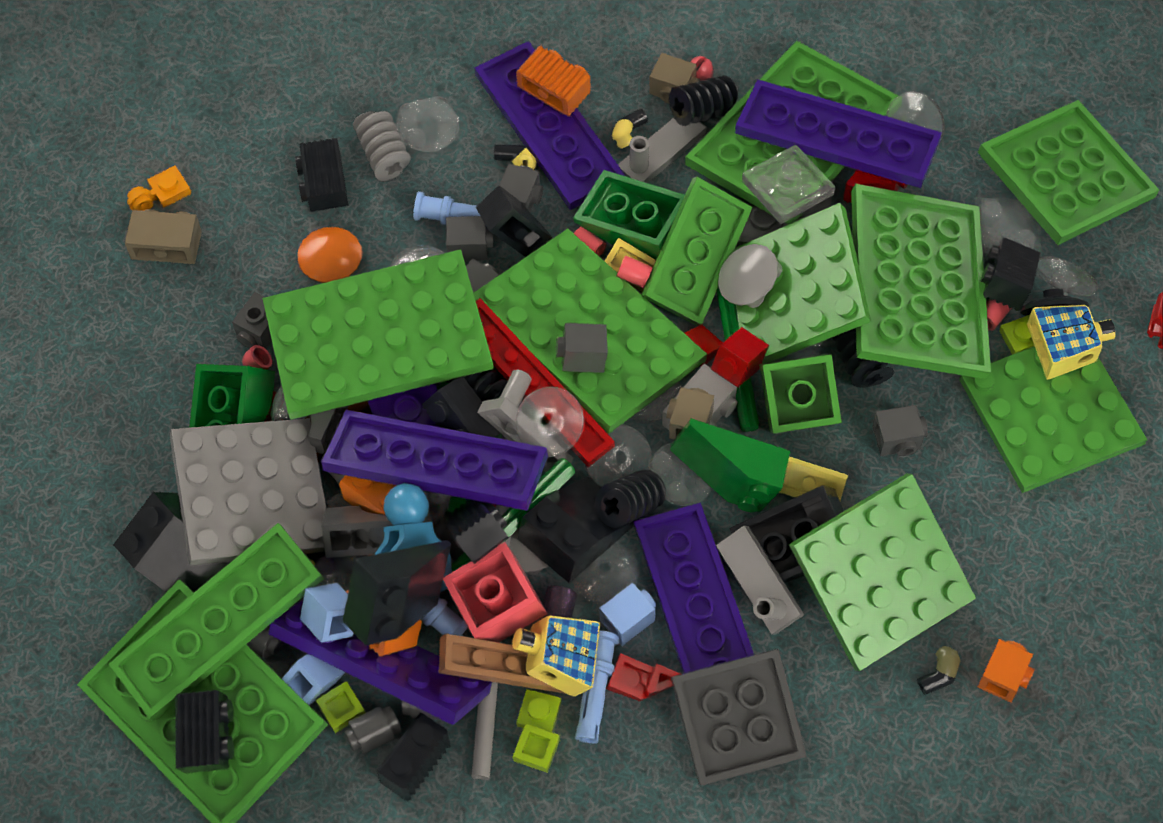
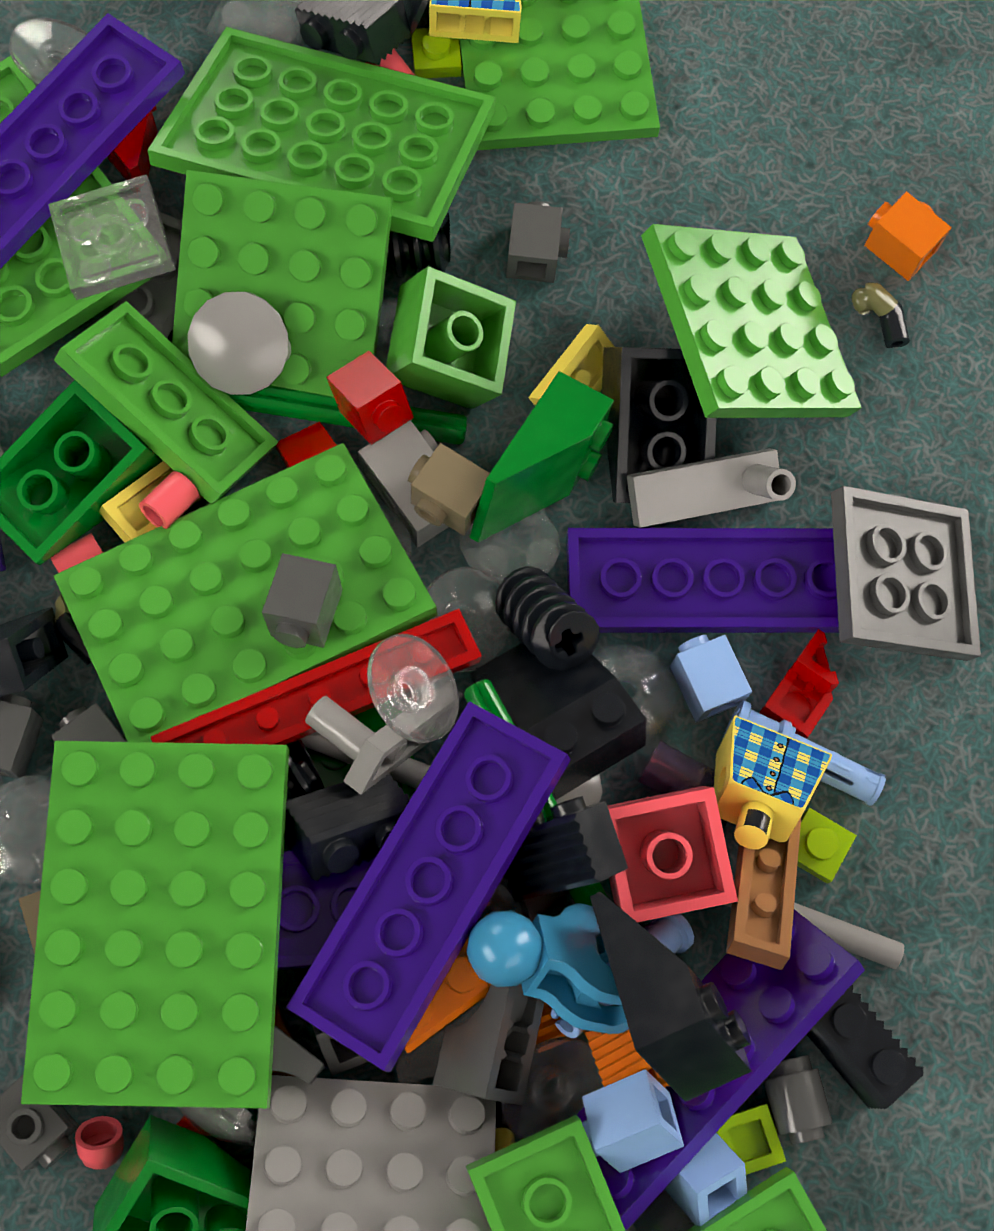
camera: 85 degrees left, 10 degrees up
(536, 747) = (876, 863): lime plate -> none

